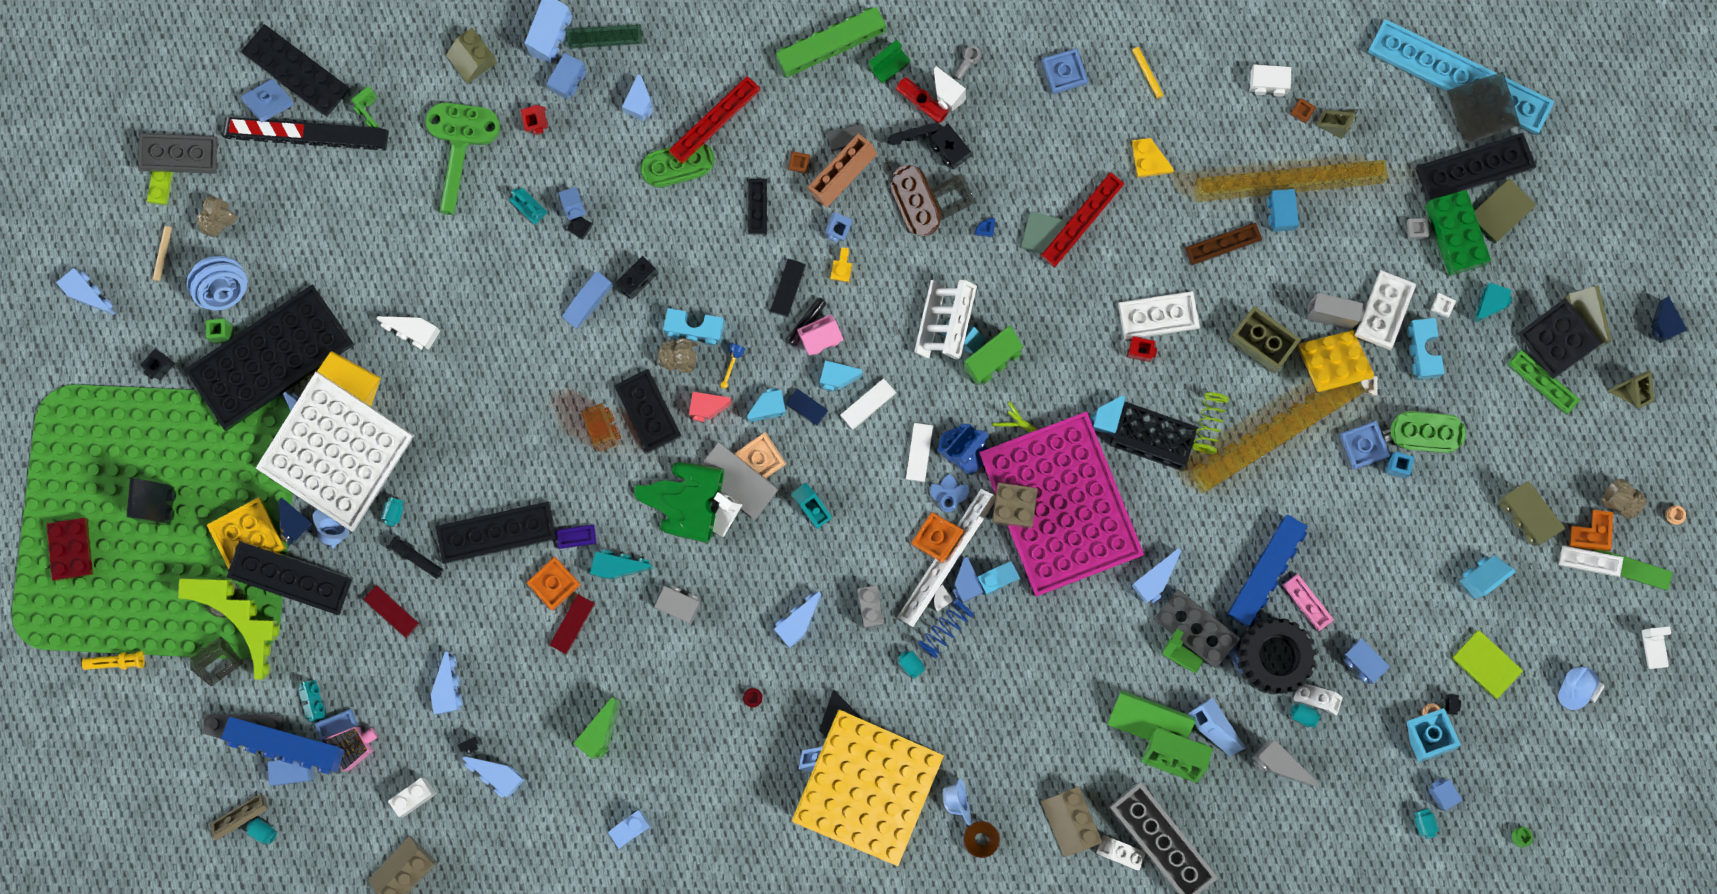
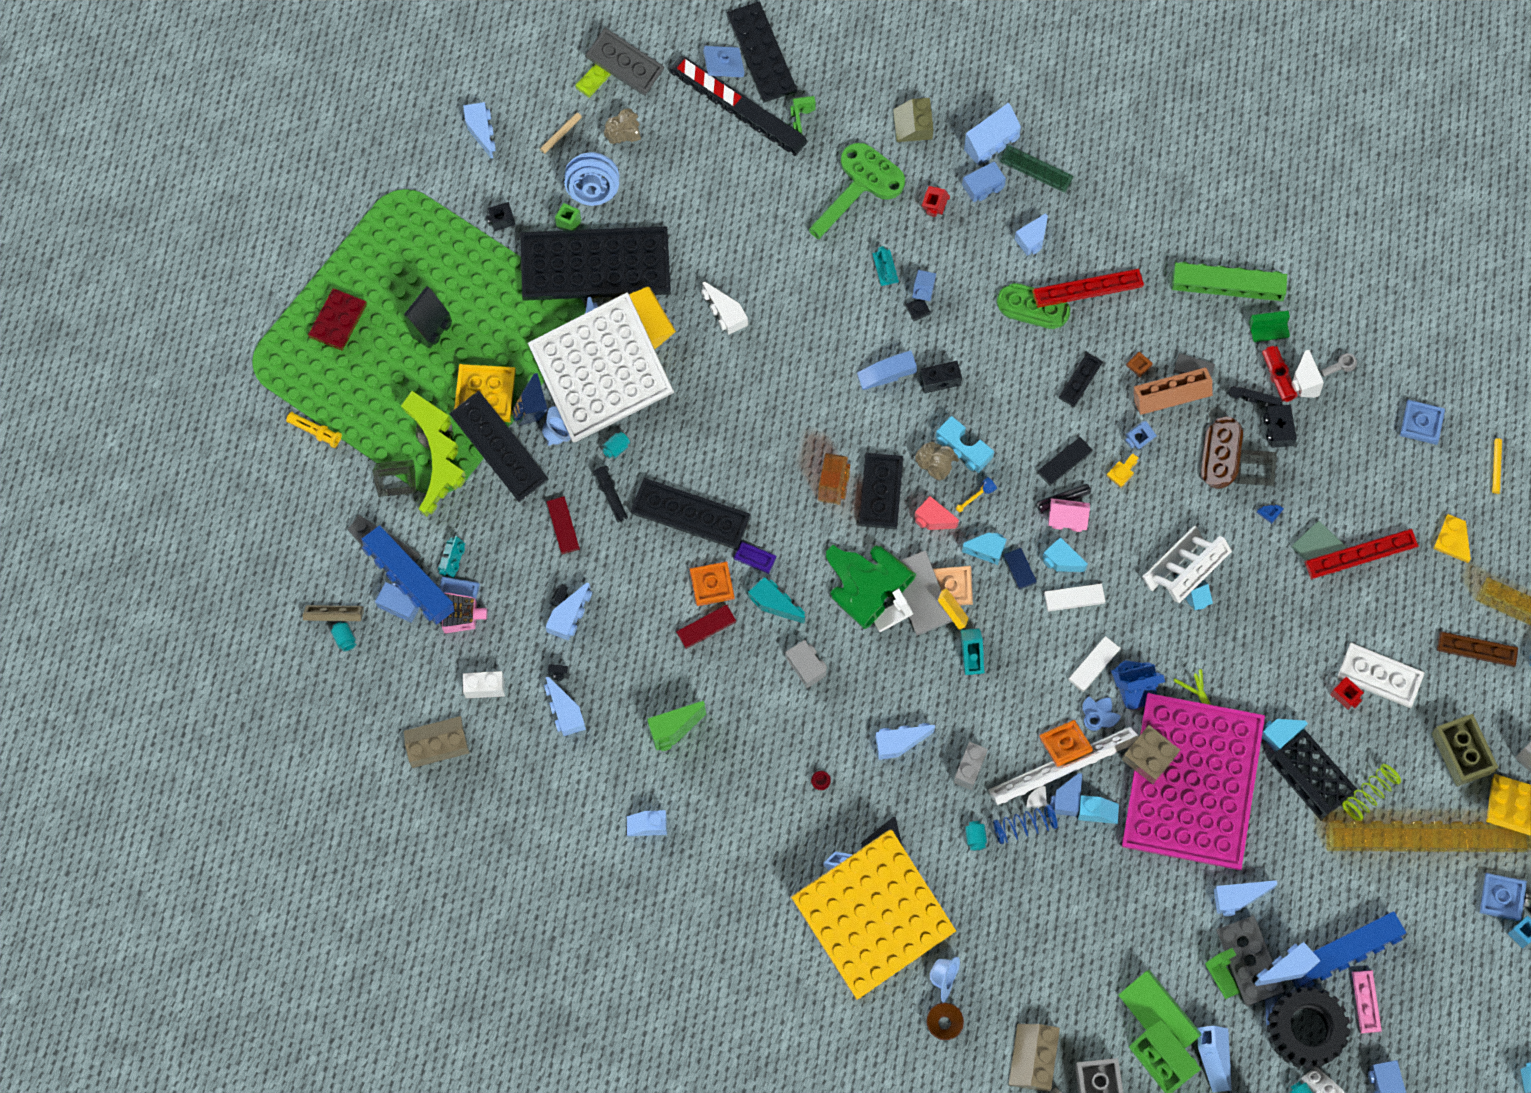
camera: 30 degrees right, 10 degrees down
(428, 676) = (559, 595): none -> black plate
(773, 479) = (953, 609): none -> yellow tile
(993, 356) = (1210, 620): bright green slope -> none
(1237, 609) = (1293, 966): none -> light blue slope

